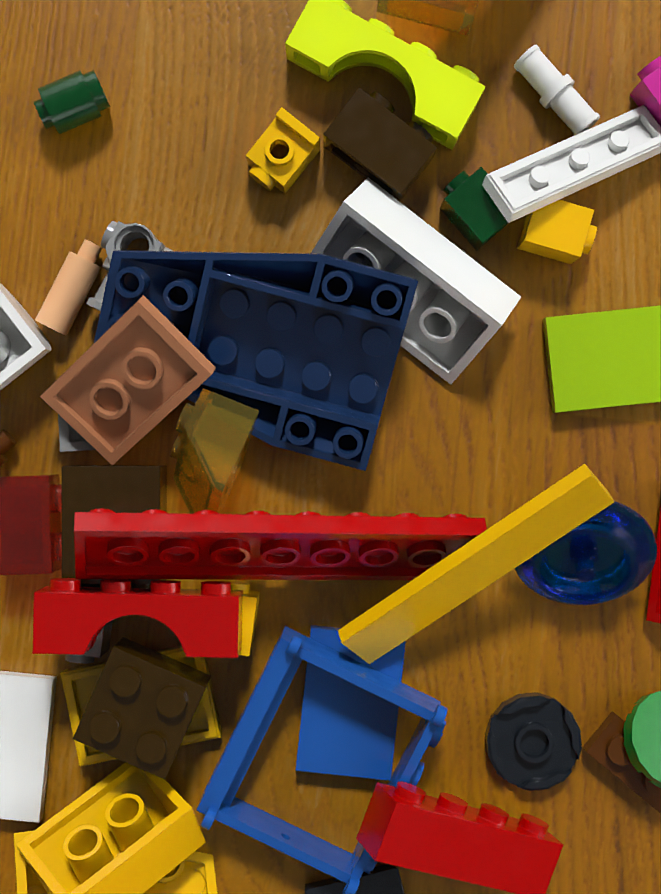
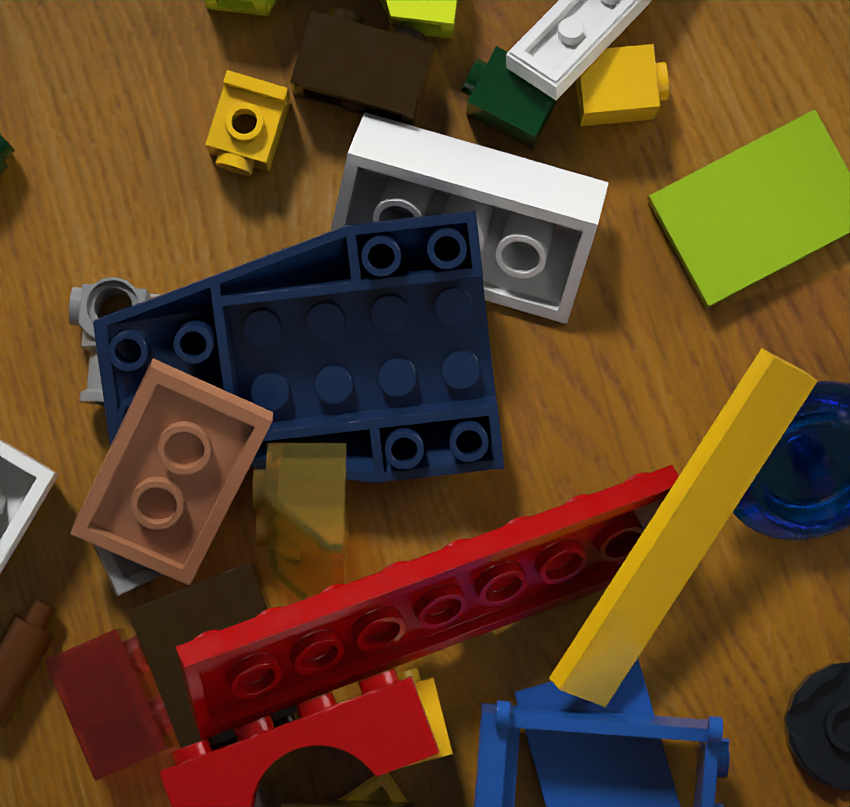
camera: 25 degrees left, 5 degrees down
(70, 288) = (51, 391): light nougat cylinder -> none

